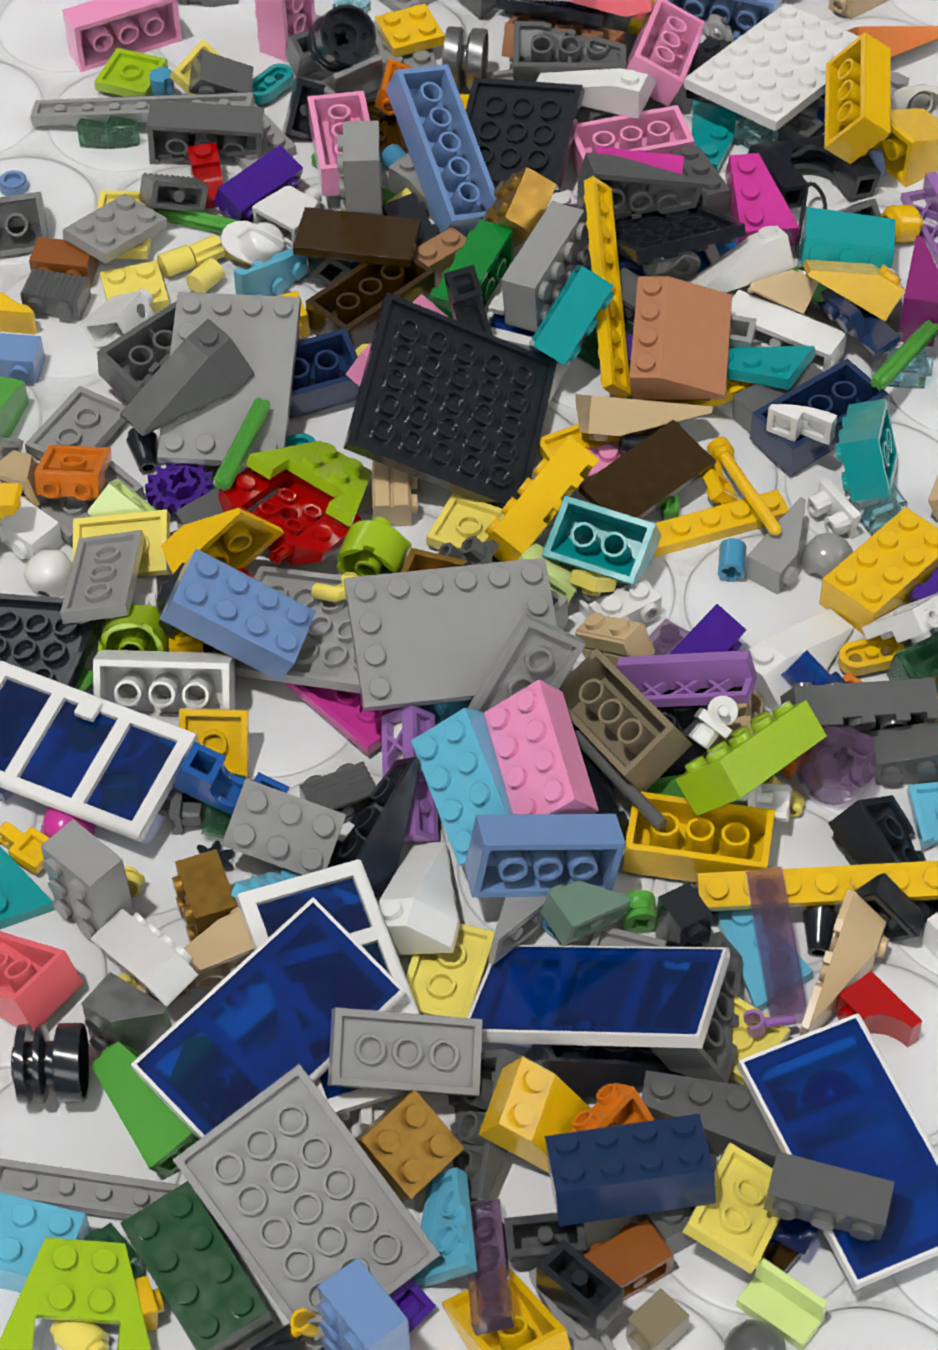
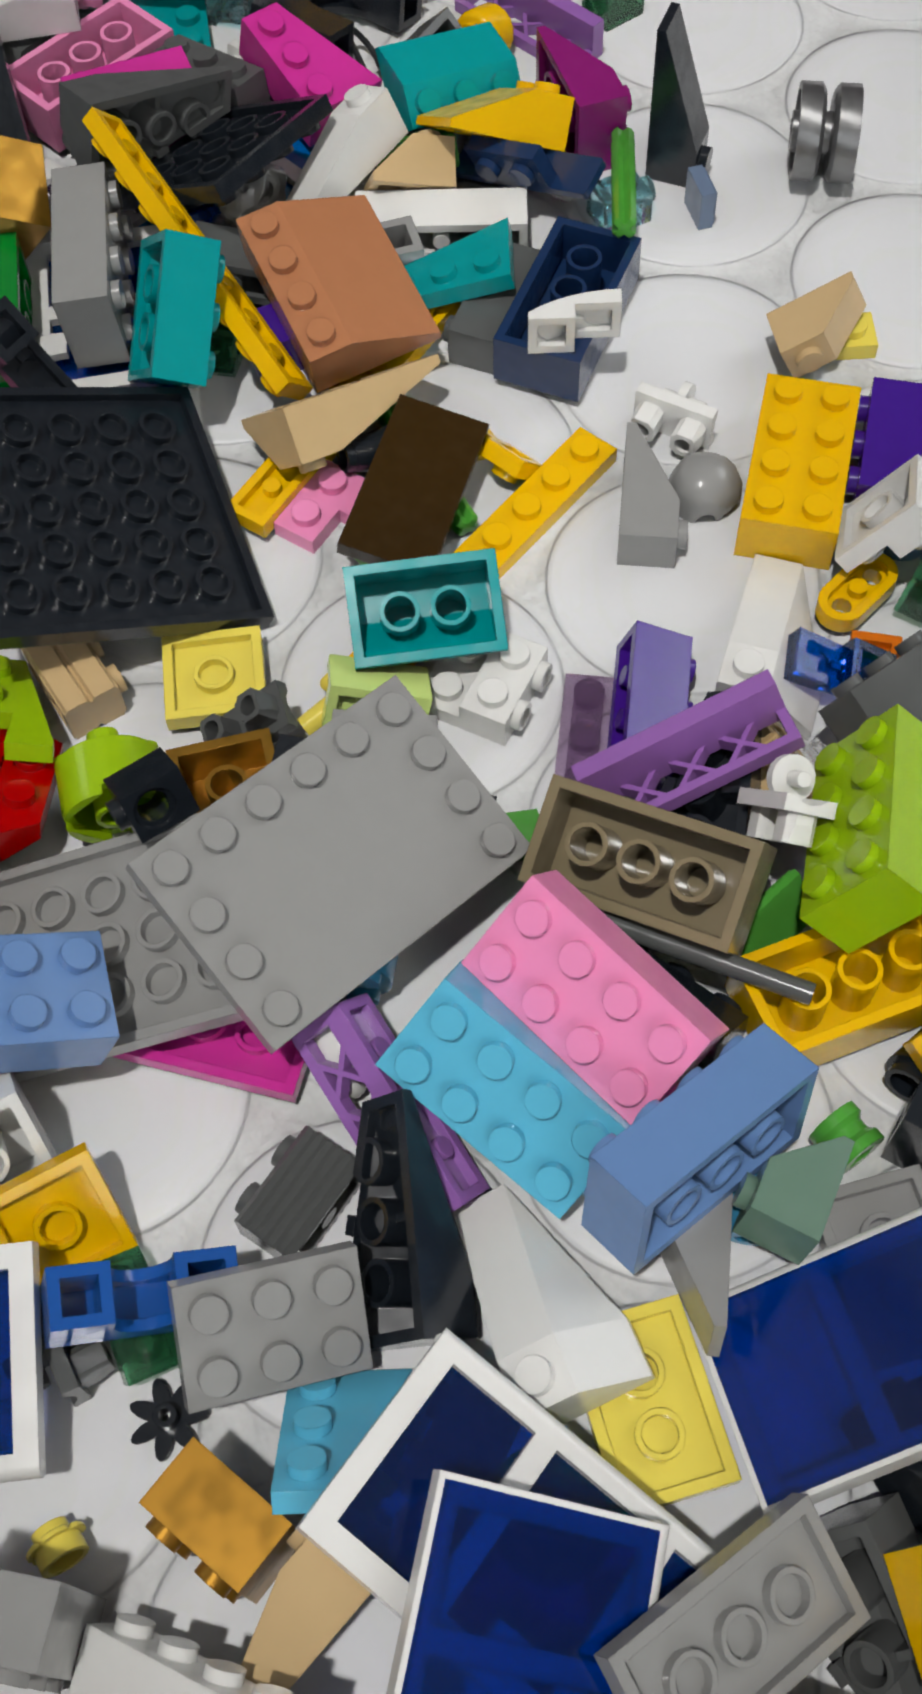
camera: 30 degrees left, 10 degrees up
(329, 592) = (106, 876): light yellow arm -> none
(391, 550) = (166, 808): none -> black brick
(530, 654) = (481, 864): light grey plate -> none
(539, 500) = (296, 591): yellow wedge -> none
(592, 583) = (448, 675): light yellow plate -> none
(614, 637) = (534, 743): tan brick -> none
(723, 451) = (480, 408): yellow piece -> none
(732, 559) = (592, 549): dark azure piece -> none
(867, 450) = (677, 320): teal brick -> none
(880, 513) = (731, 389): clear light blue panel -> none

